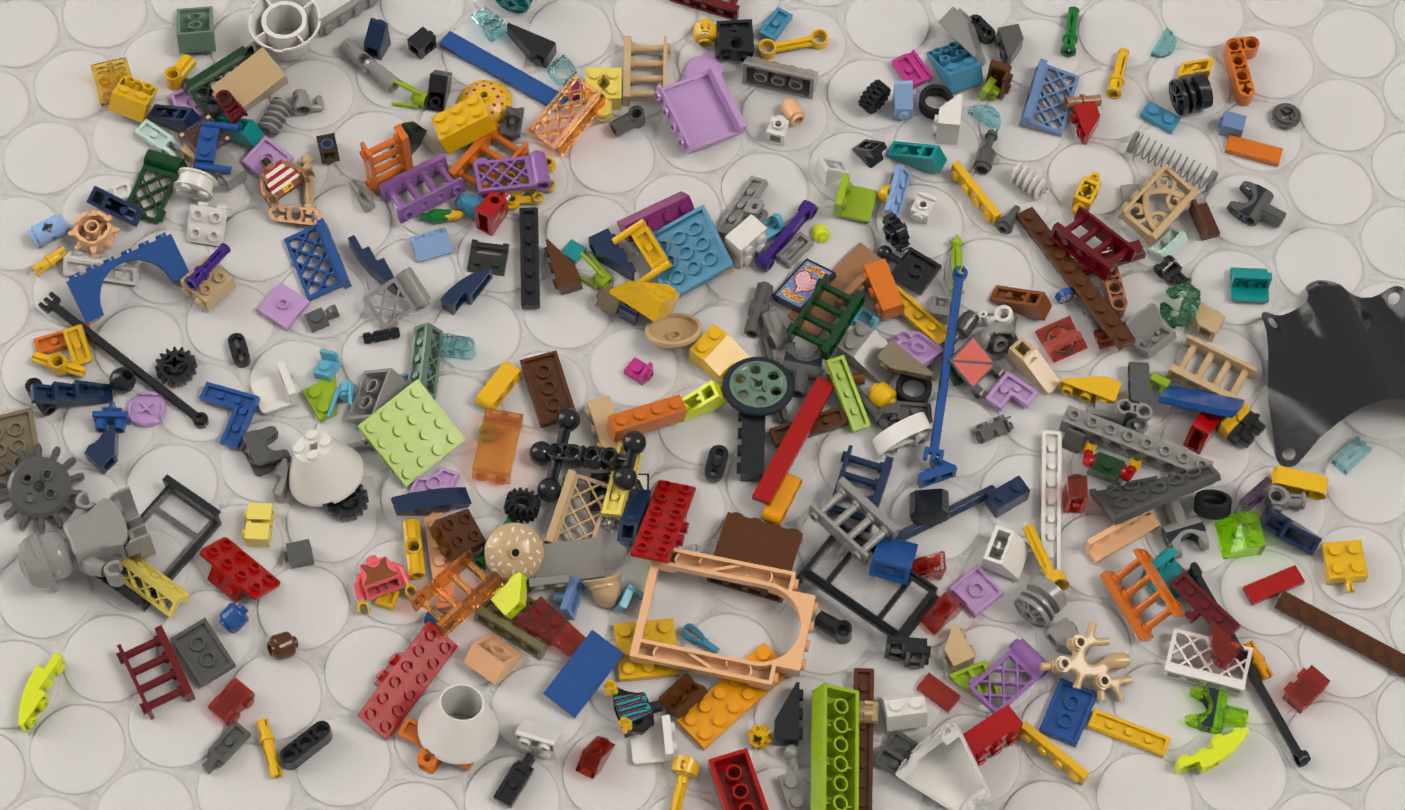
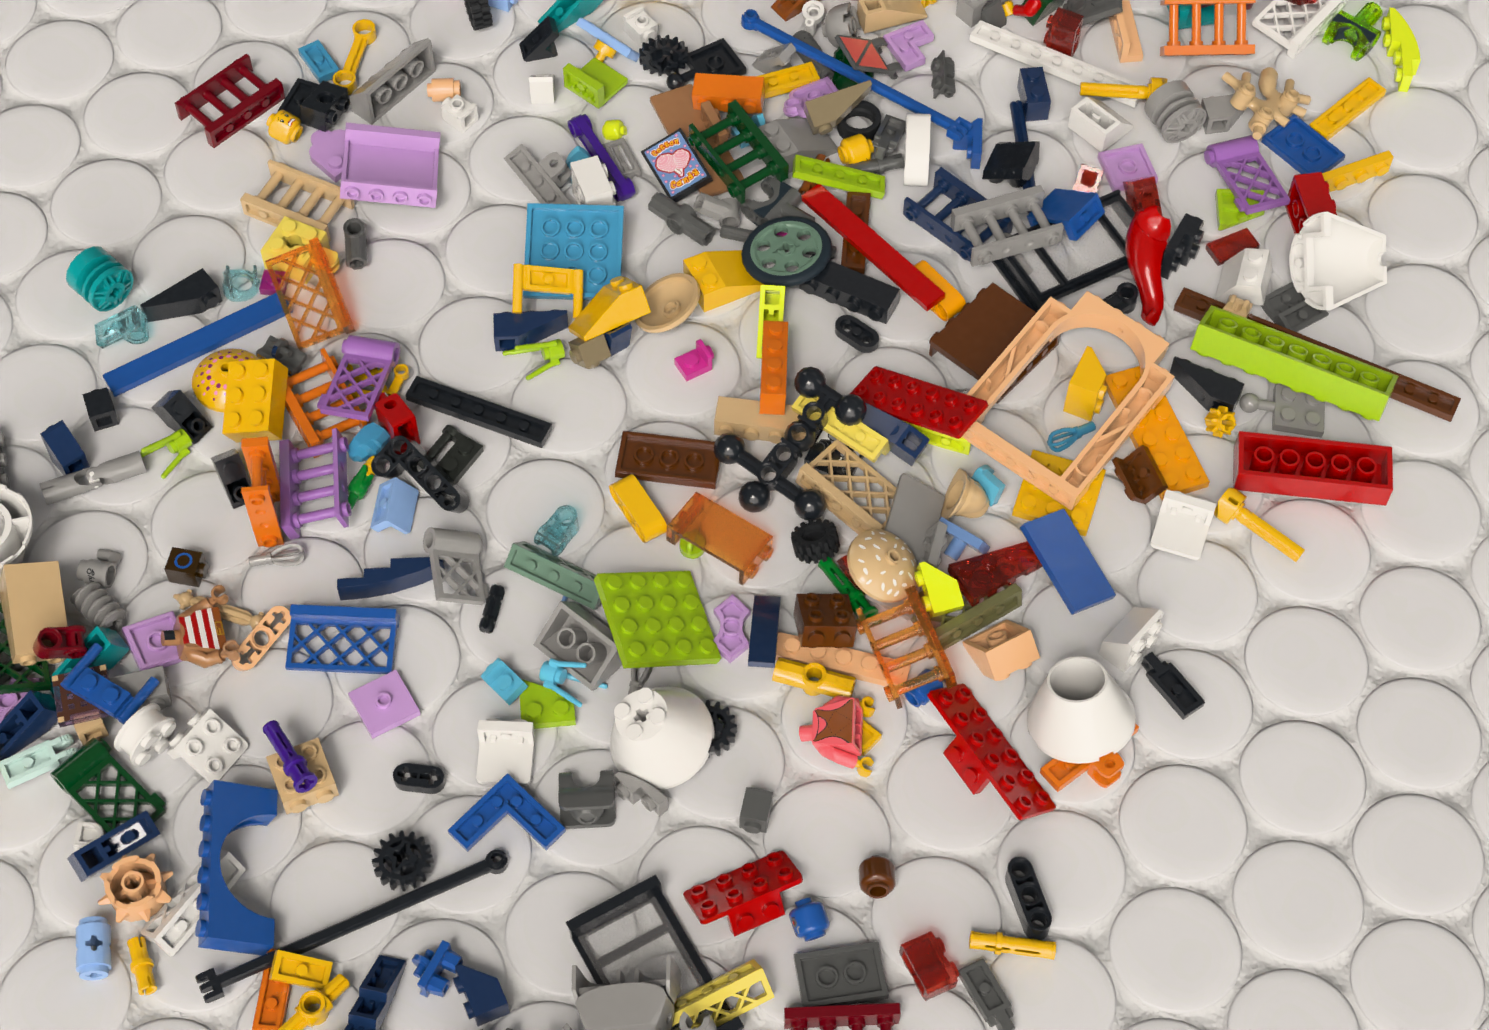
camera: 65 degrees left, 5 degrees down
(122, 380) = (387, 932): black piece -> none
(147, 409) = (442, 919): lavender tile -> none
(258, 524) = (683, 843): light yellow piece -> none
(319, 319) = (427, 670): dark grey plate -> none
(461, 246) = (425, 478): none -> black beam
(466, 290) = (487, 494): dark blue slope -> none
(566, 274) = (519, 381): reddish brown slope -> none
(573, 250) = (495, 366): teal tile -> none
(594, 756) = (1177, 591): clear red slope -> none
(609, 524) = (881, 465): clear bush -> none
(632, 709) = (1138, 529): torso -> none
(660, 213) = (503, 250): magenta brick -> none
(741, 630) = (1086, 387): none -> yellow slope
(874, 622) = (1144, 251): none -> red animal
(956, 256) = (730, 29): lime wheel -> none
(957, 651) = (1195, 203): tan slope -> none

